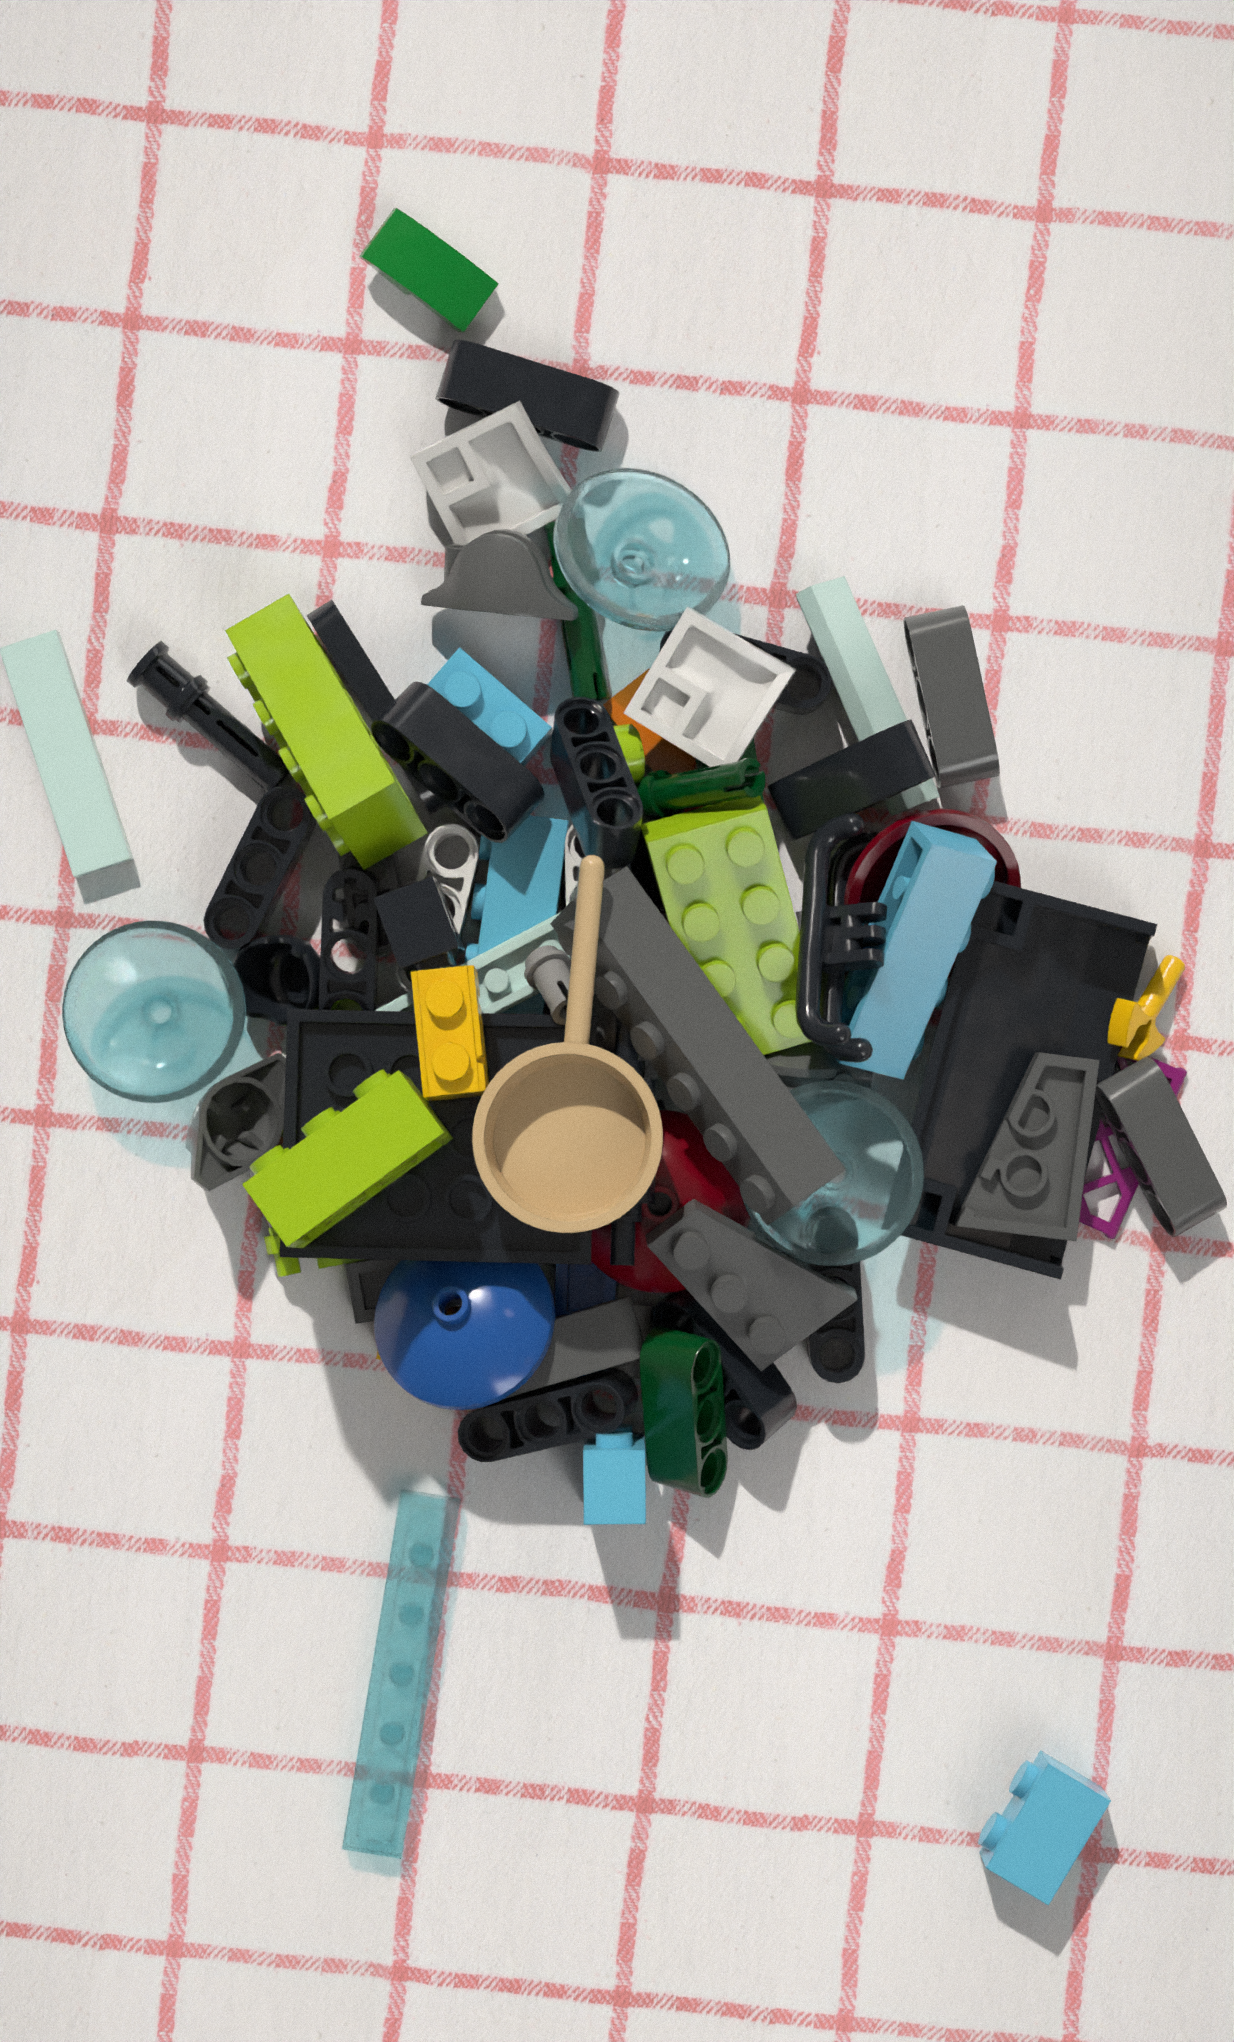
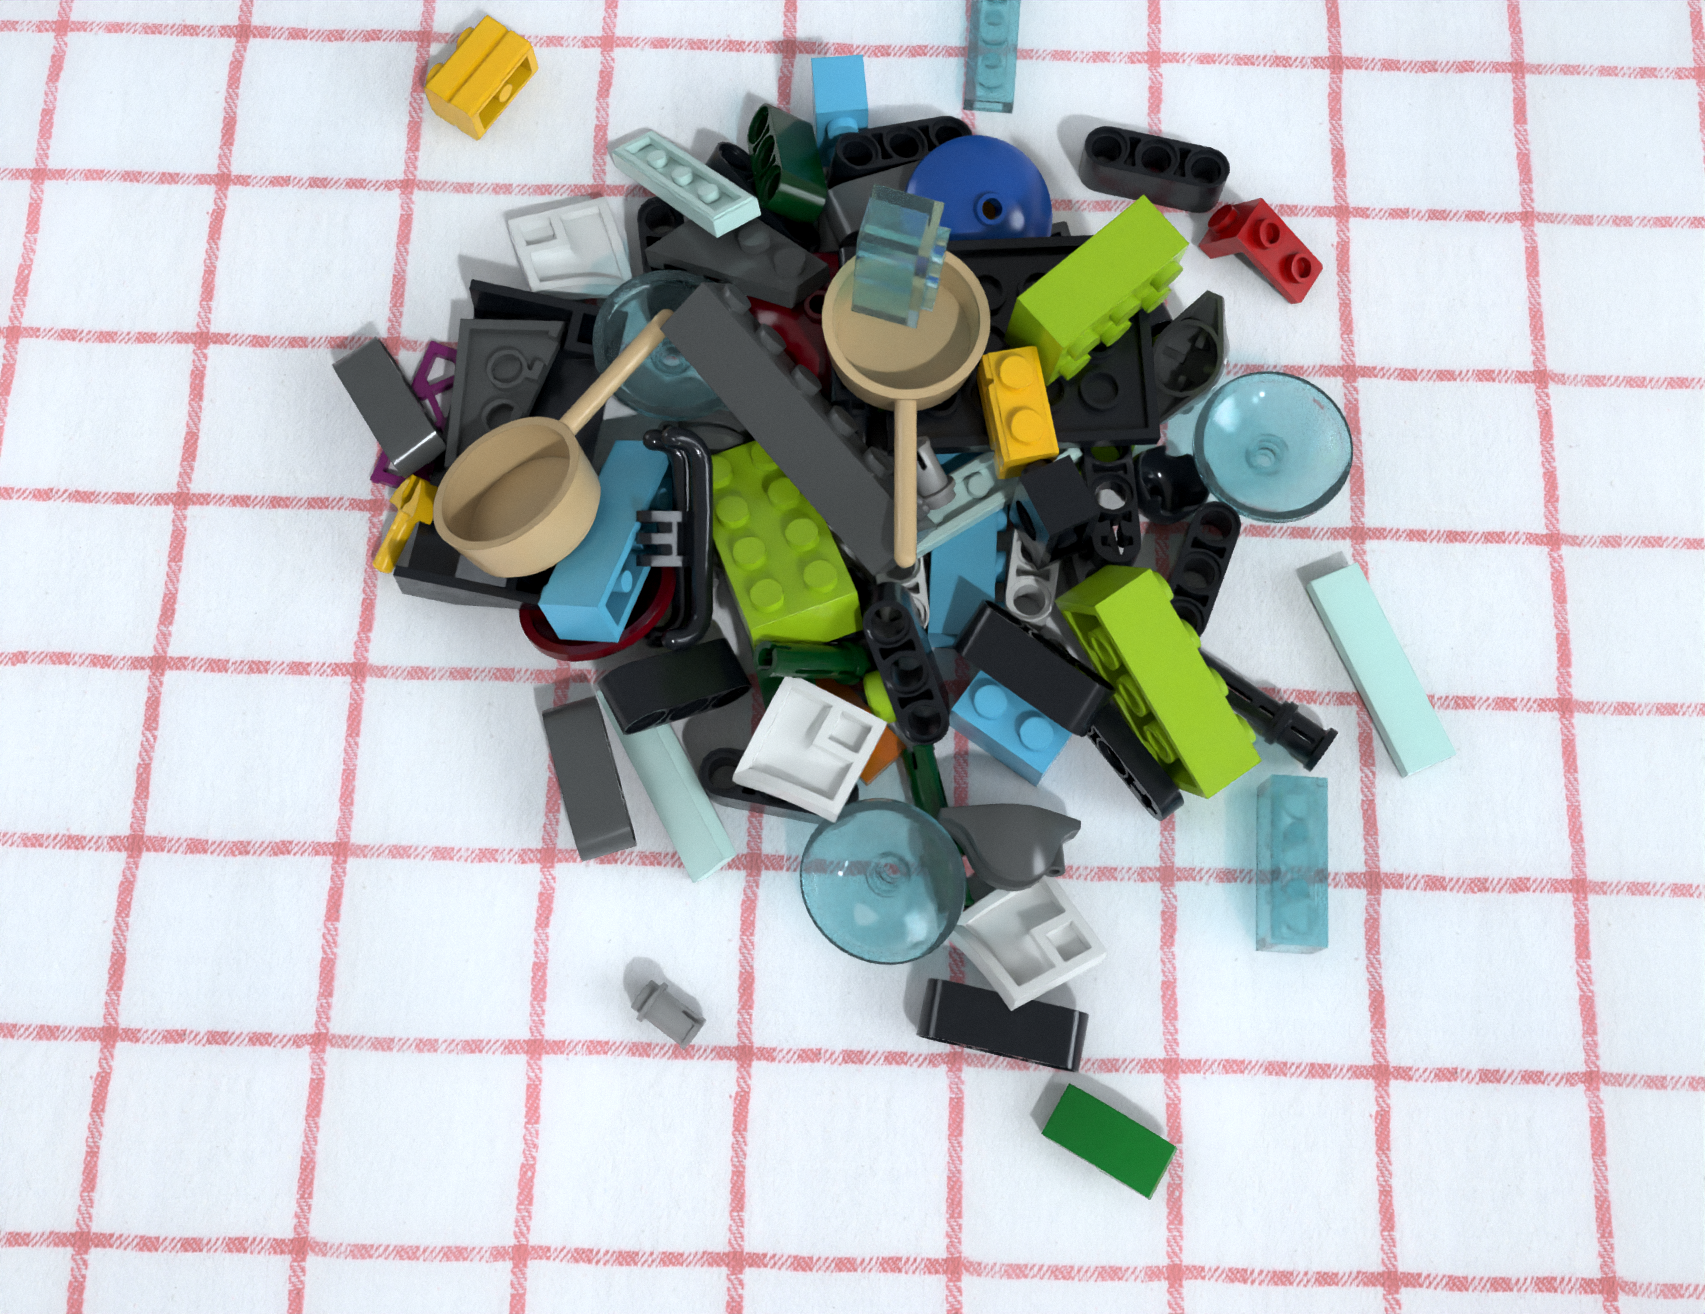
camera: 175 degrees right, 15 degrees down
(125, 1273) = (1268, 244): none -> red bracket
(199, 536) = (1292, 864): none -> clear light blue brick
(214, 1392) = (1175, 159): none -> black beam
(574, 1162) = (899, 256): none -> clear light blue brick
(805, 1390) = (686, 183): none -> light aqua tile
(879, 437) = (667, 1014): none -> light grey pin
(944, 1330) = (571, 251): none -> white plate
(1013, 1006) = (527, 487): none -> tan piece
(1046, 1575) = (480, 77): none -> yellow brick

